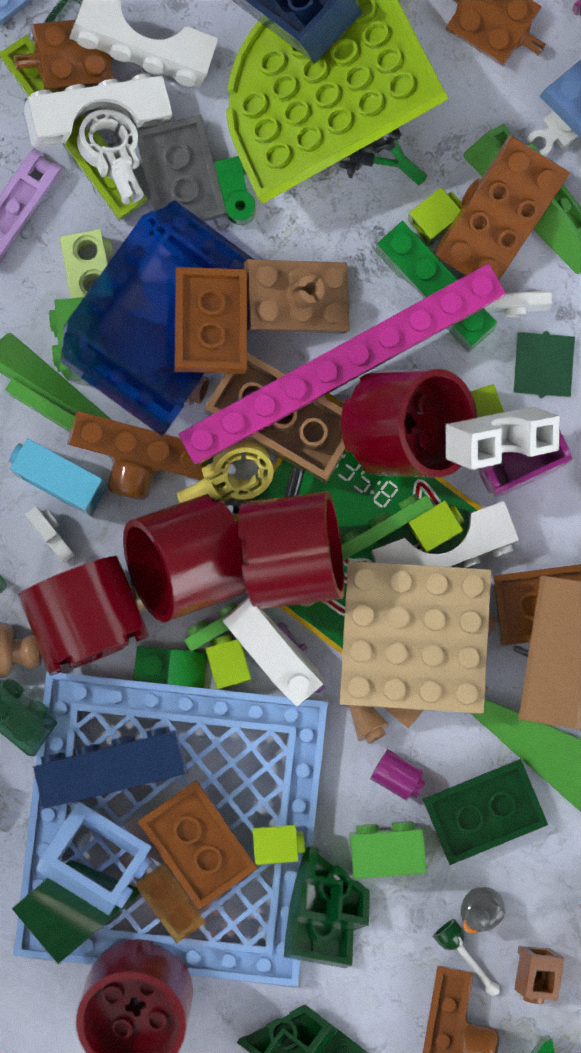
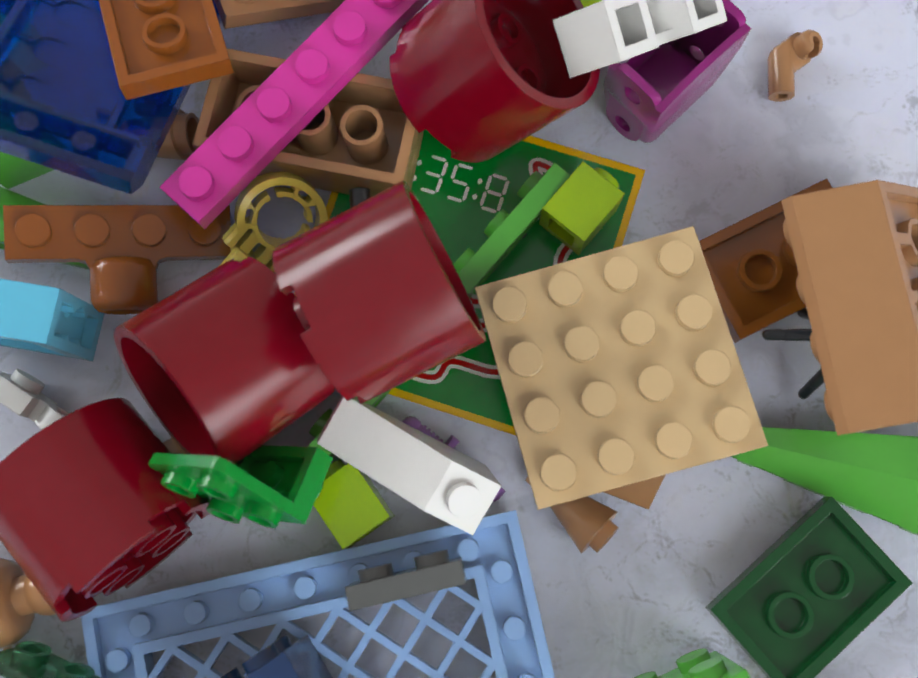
camera: 15 degrees left, 5 degrees down
(170, 666) = (254, 546): green slope -> none
(187, 636) = (263, 487): none -> green bracket
(234, 717) = (382, 585): none -> dark grey plate
(398, 775) = (660, 585): magenta brick -> none
(487, 532) = (656, 188): white arch -> none

